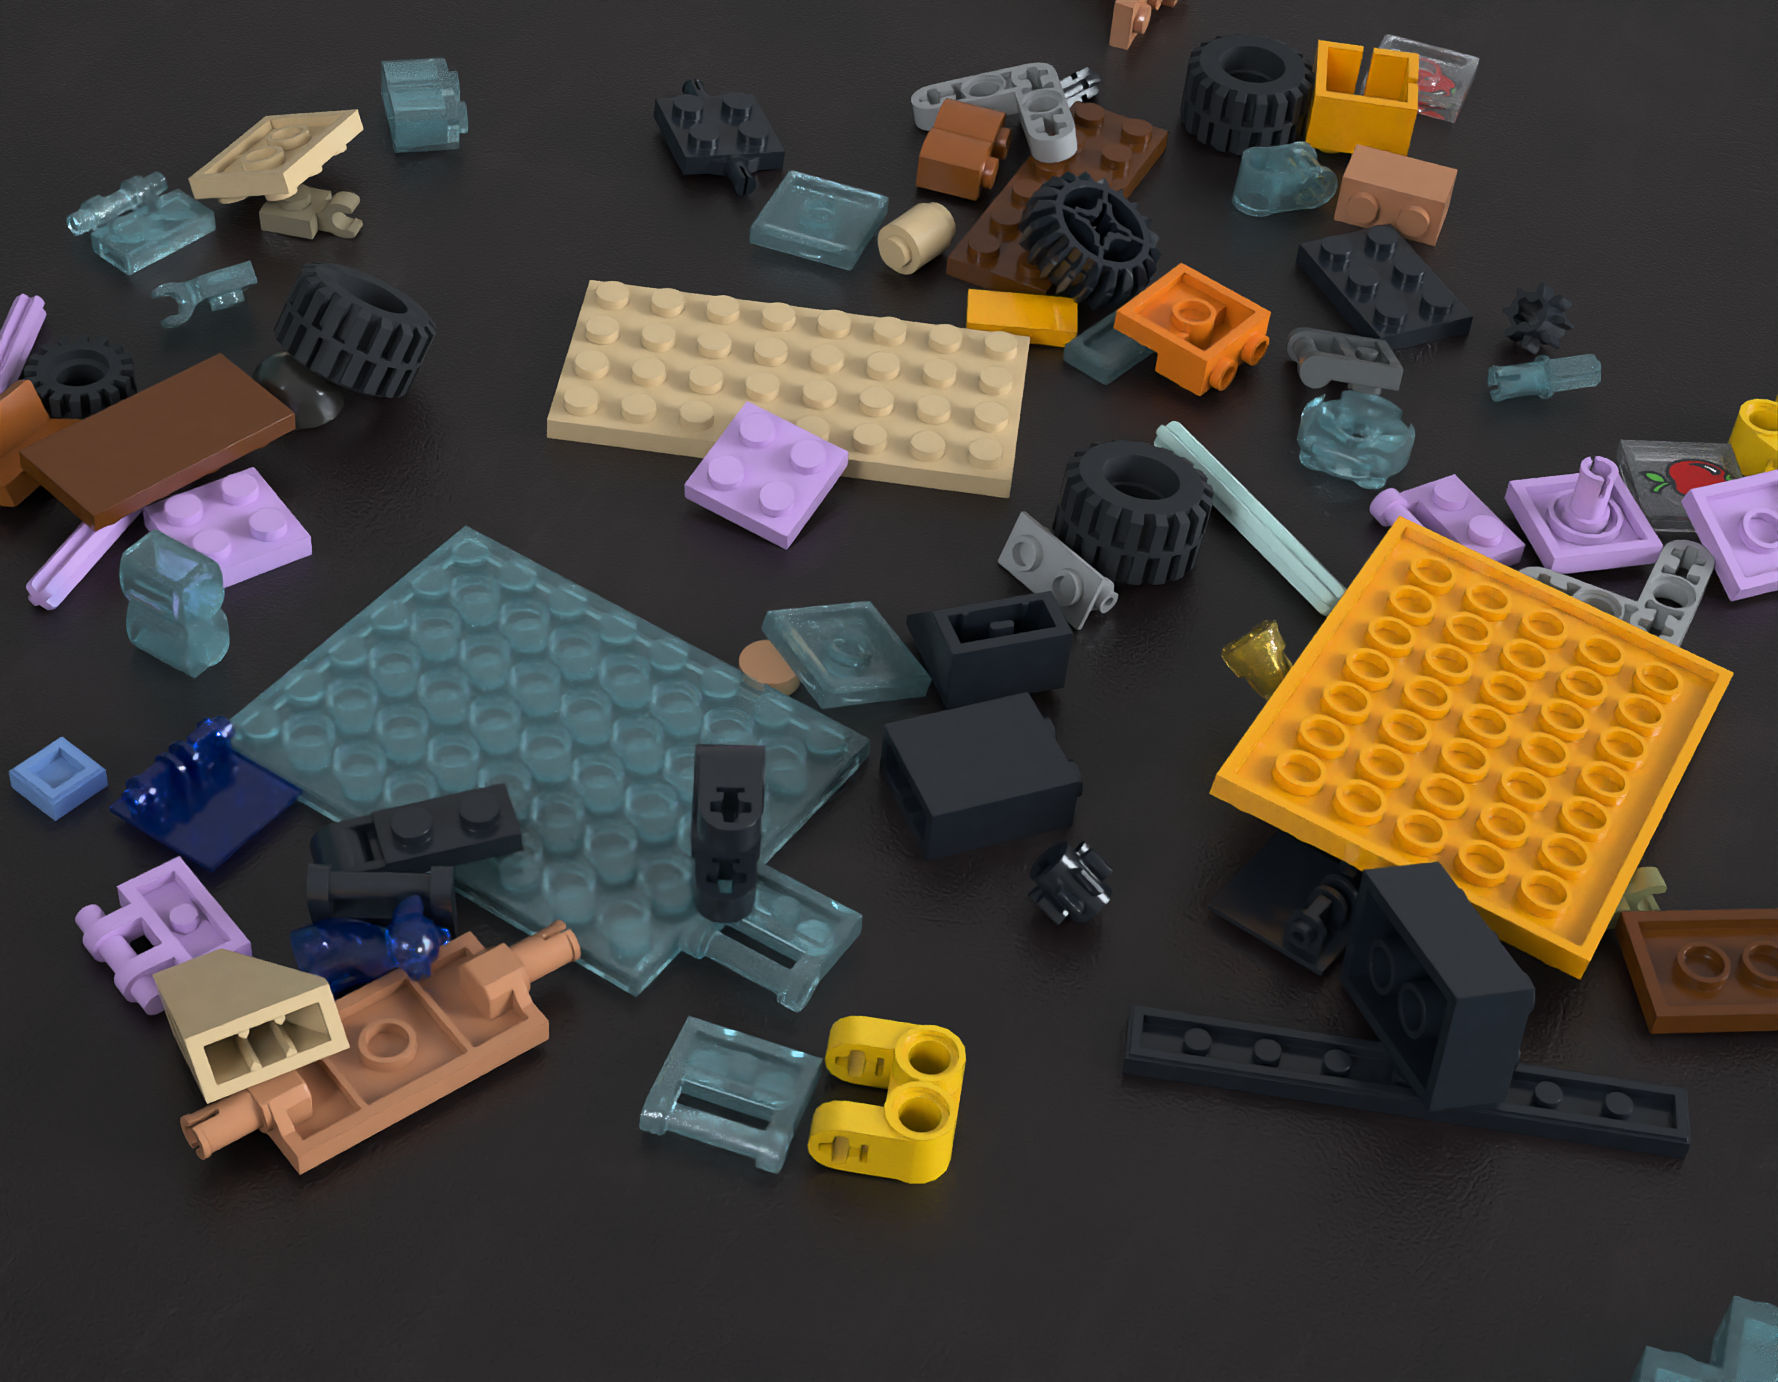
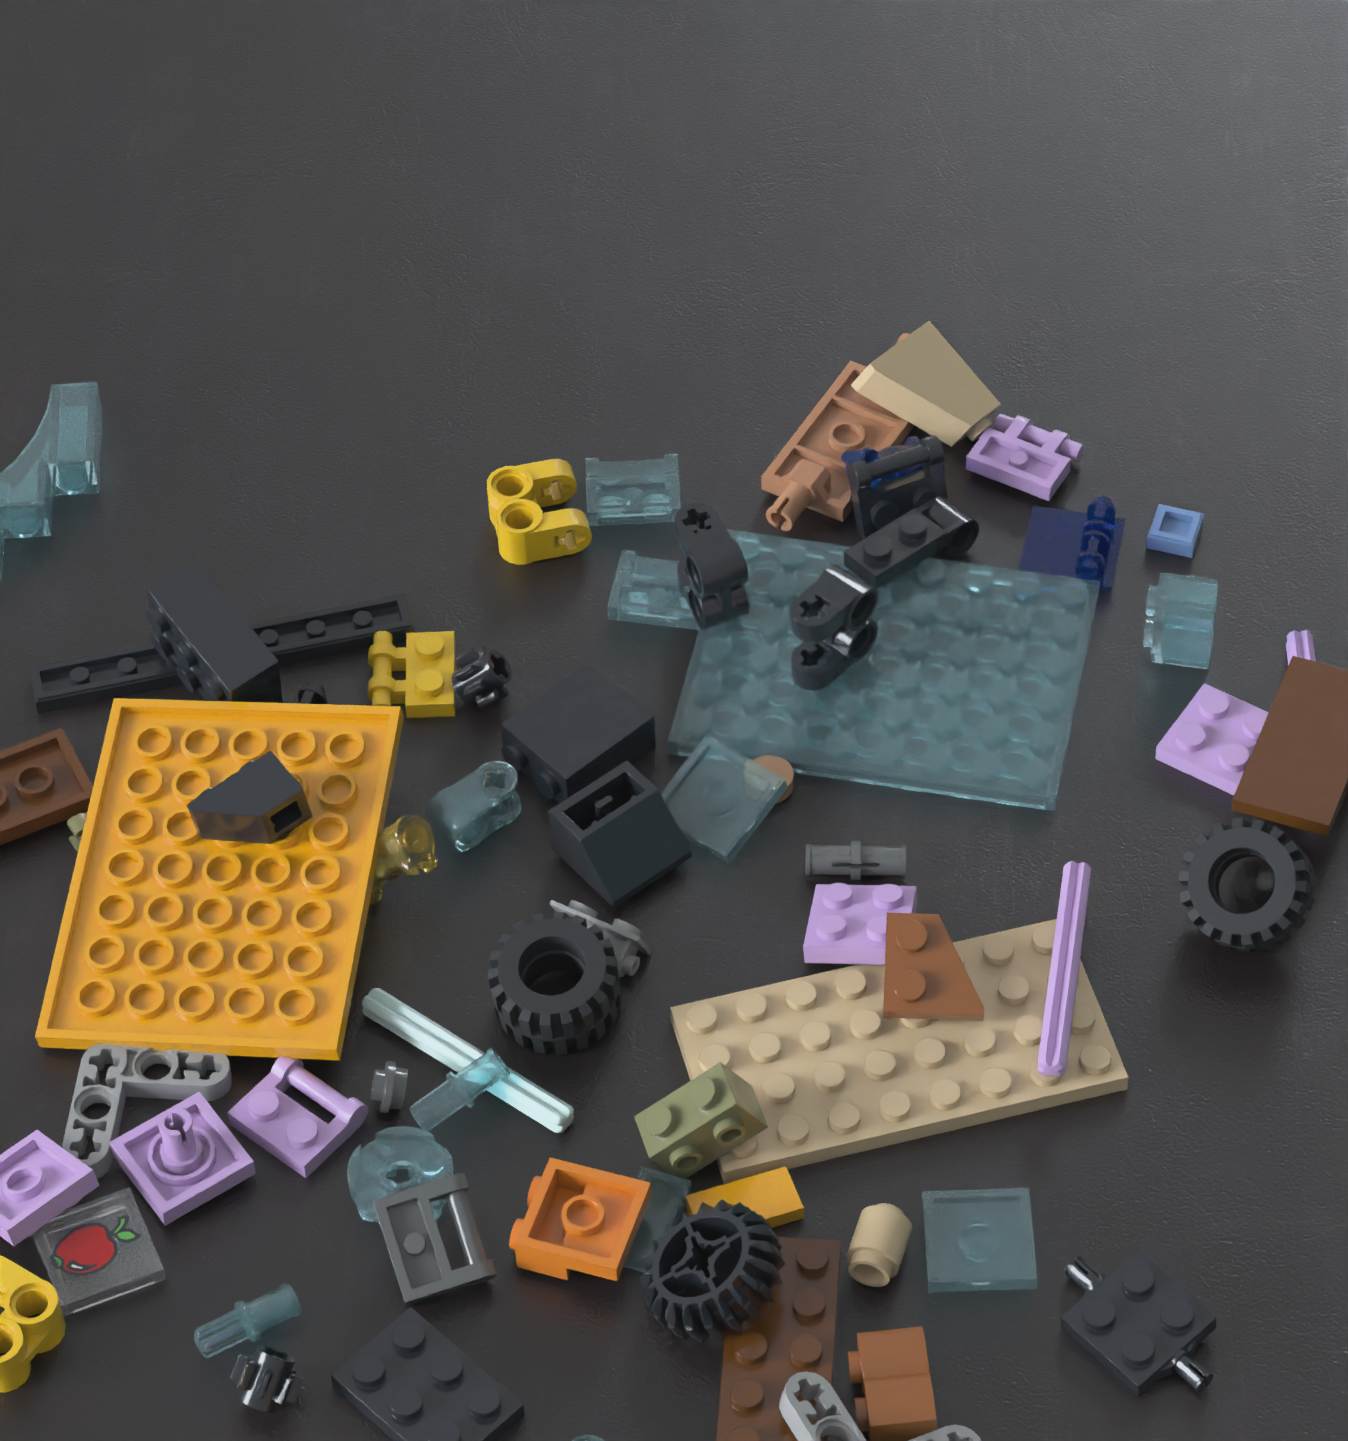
camera: 165 degrees right, 5 degrees up
(587, 350) = (1064, 969): none -> lavender axle
(596, 703) = (837, 627): none -> black piece
(727, 549) = (855, 860): none -> dark grey pin
(744, 375) = (925, 972): none -> dark orange wing
(1042, 337) = (700, 1121): none -> olive brick
(1129, 948) = (428, 668): none -> yellow plate
(1144, 737) = (471, 809): none -> clear light blue piece
(1270, 470) = (459, 1090): none -> clear light blue axle
(1342, 506) = (389, 1087): none -> dark grey plate
(1442, 722) = (251, 805): none -> black slope

